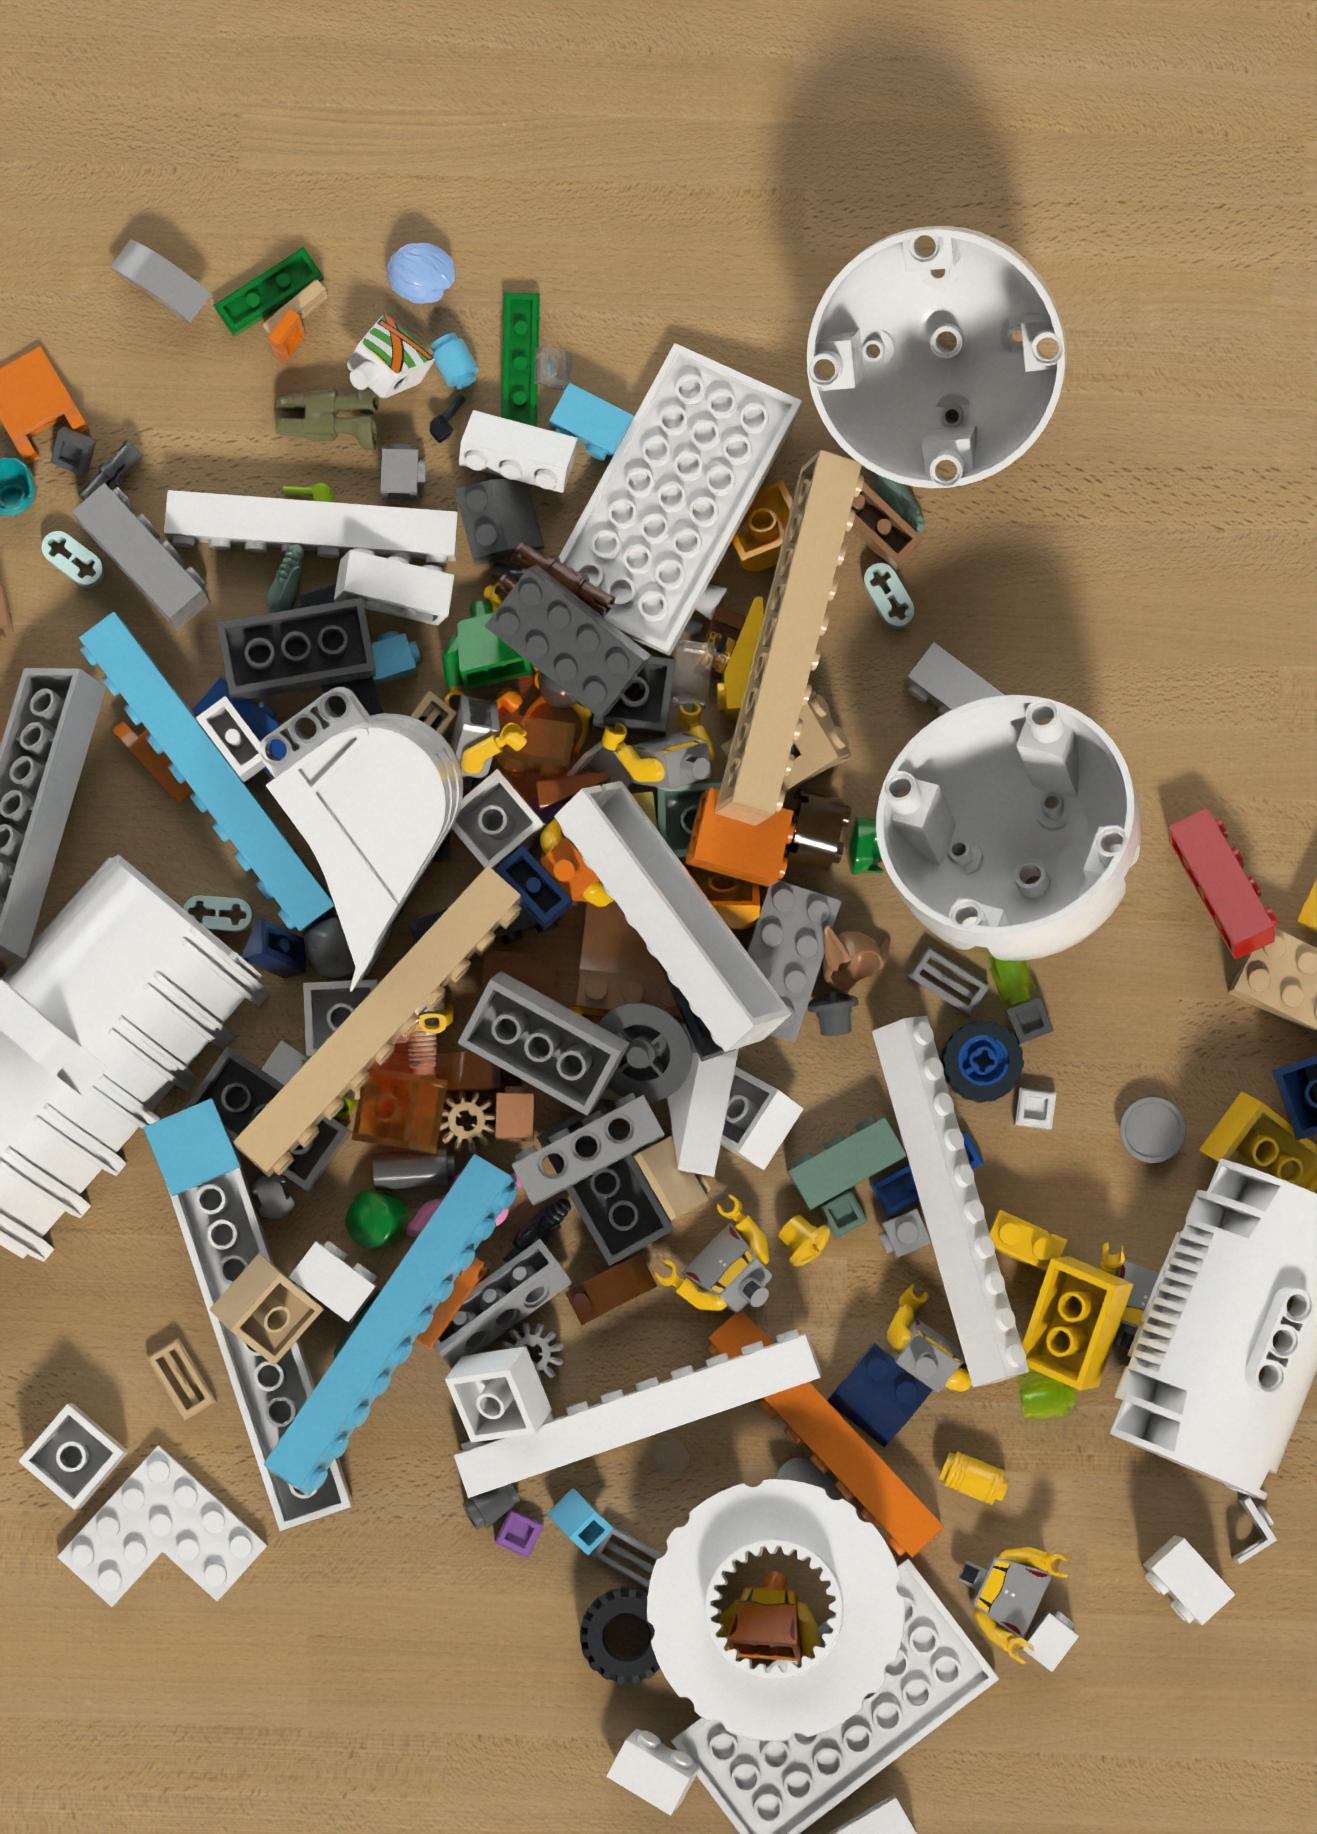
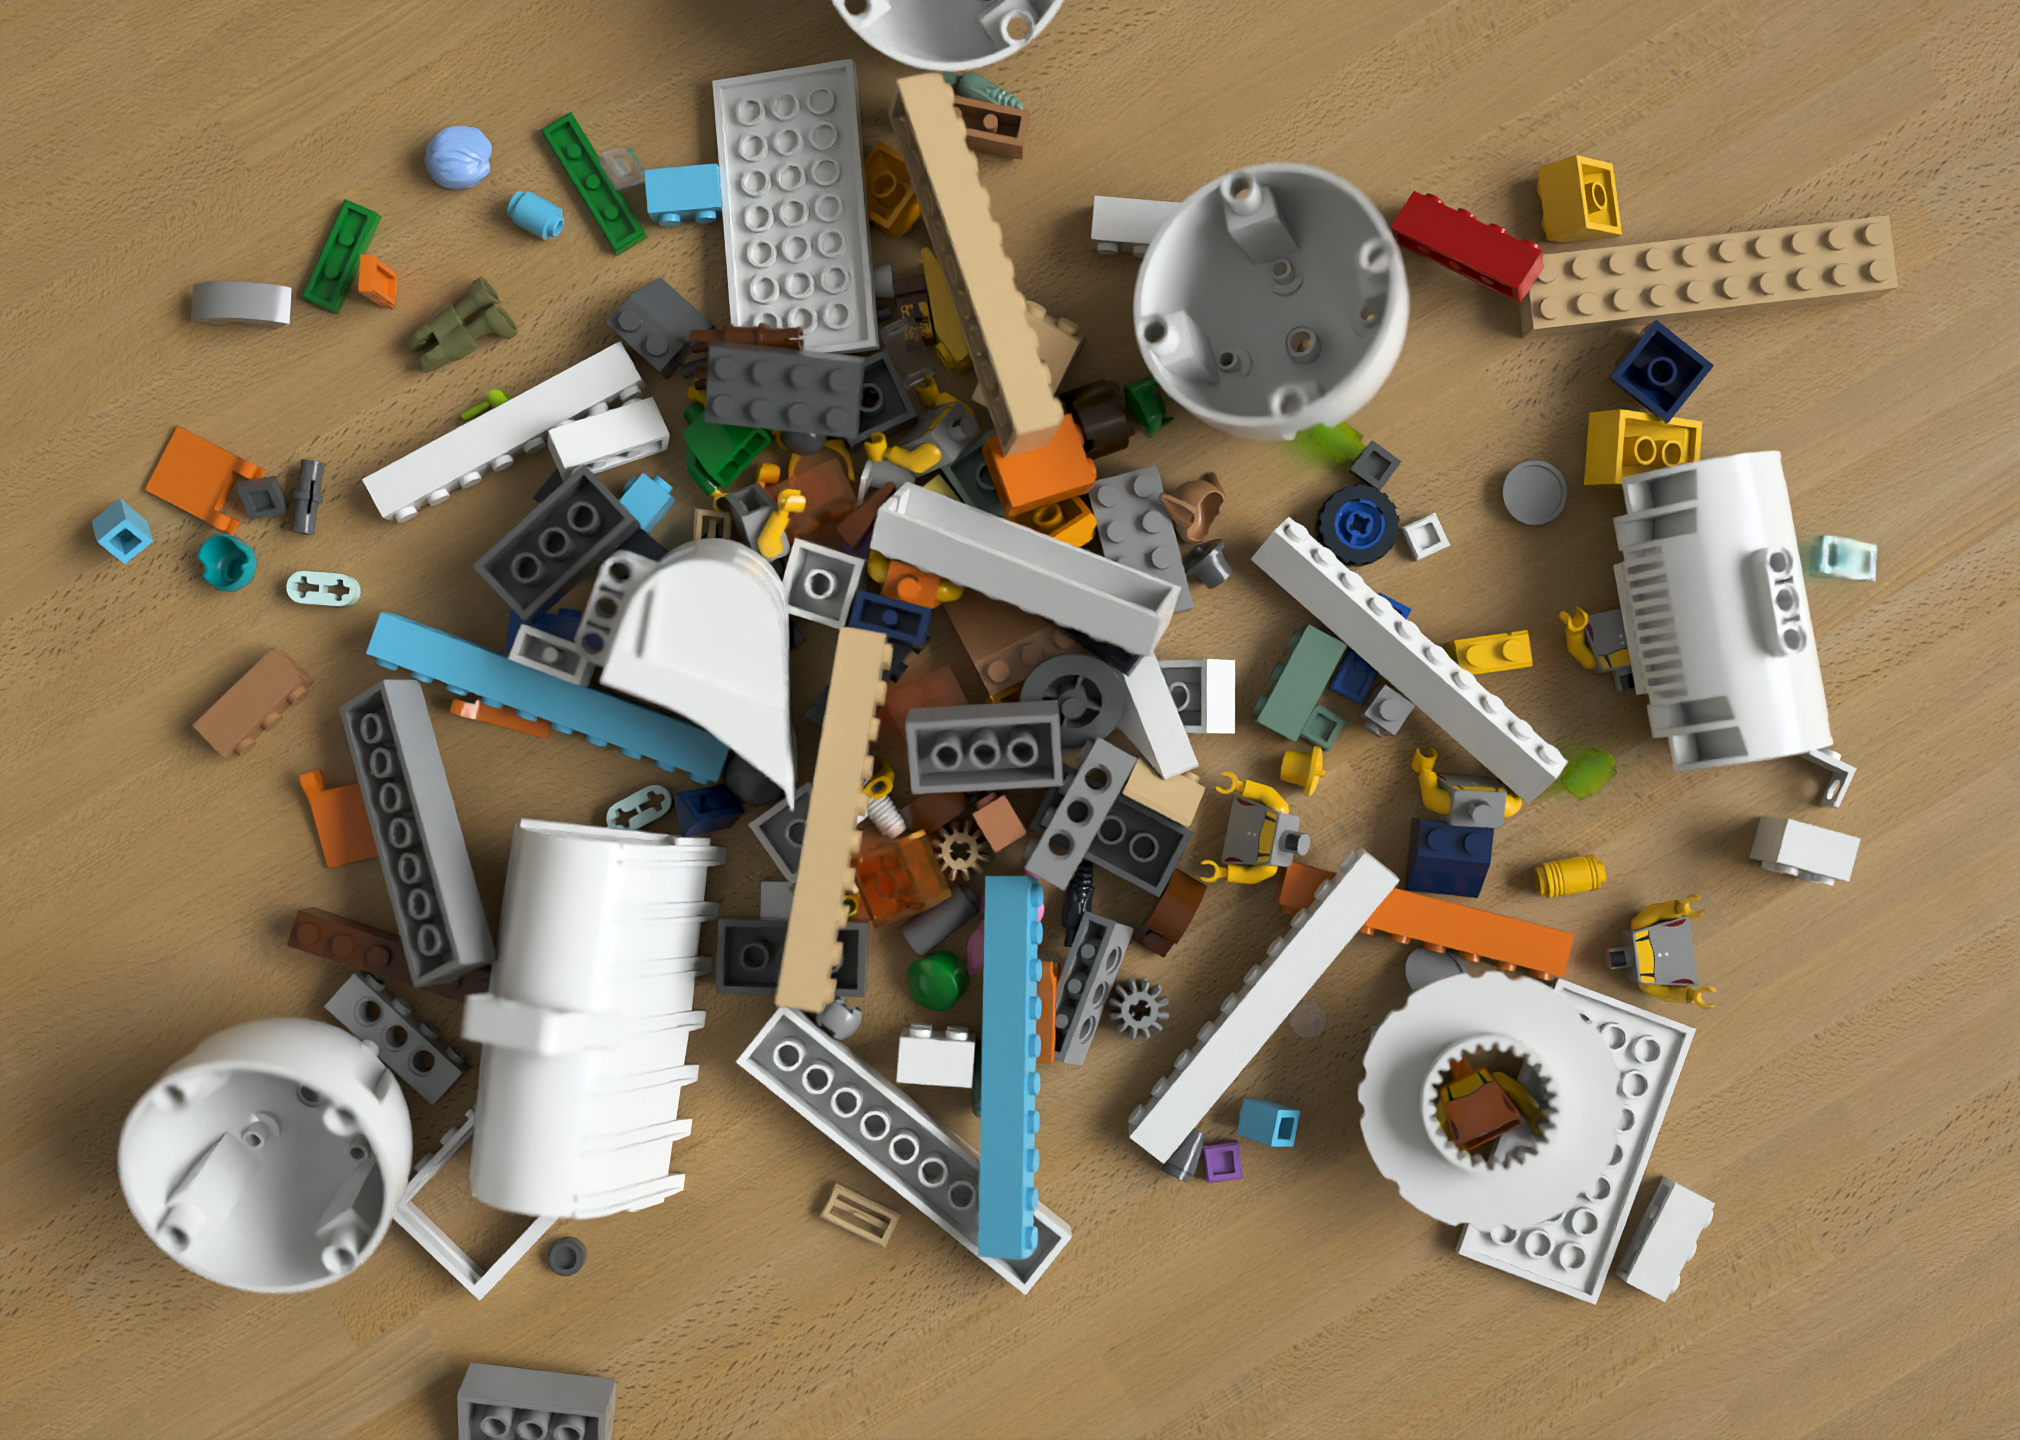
camera: 30 degrees left, 5 degrees up
(73, 1456) = (812, 1339): white brick -> none
(137, 552) = (369, 547): light grey brick -> none
(158, 1513) = (915, 1333): white plate -> none
(192, 1147) = (743, 1023): medium azure tile -> none
(266, 1309) = (894, 1121): tan slope -> none
(284, 588) = (514, 490): sand green piece -> none
(302, 304) = (376, 243): tan tile -> none
(388, 360) = (478, 248): white torso -> none
(401, 472) = (552, 338): light grey brick -> none
(440, 428) = (562, 280): black hand -> none
(498, 1394) = (1135, 1064): white brick -> none
(517, 451) = (638, 257): white brick -> none
(593, 1641) = (1360, 1222): black tyre -> none
(627, 1555) = (1329, 1121): light grey tile -> none
(653, 1771) = (1461, 1289): white brick -> none
(881, 600) = (1033, 175): light aqua beam -> none
(937, 991) = (1254, 476): light grey tile -> none
(1051, 1639) = (1718, 968): white brick -> none
(1075, 1322) = (1578, 694): yellow brick -> none

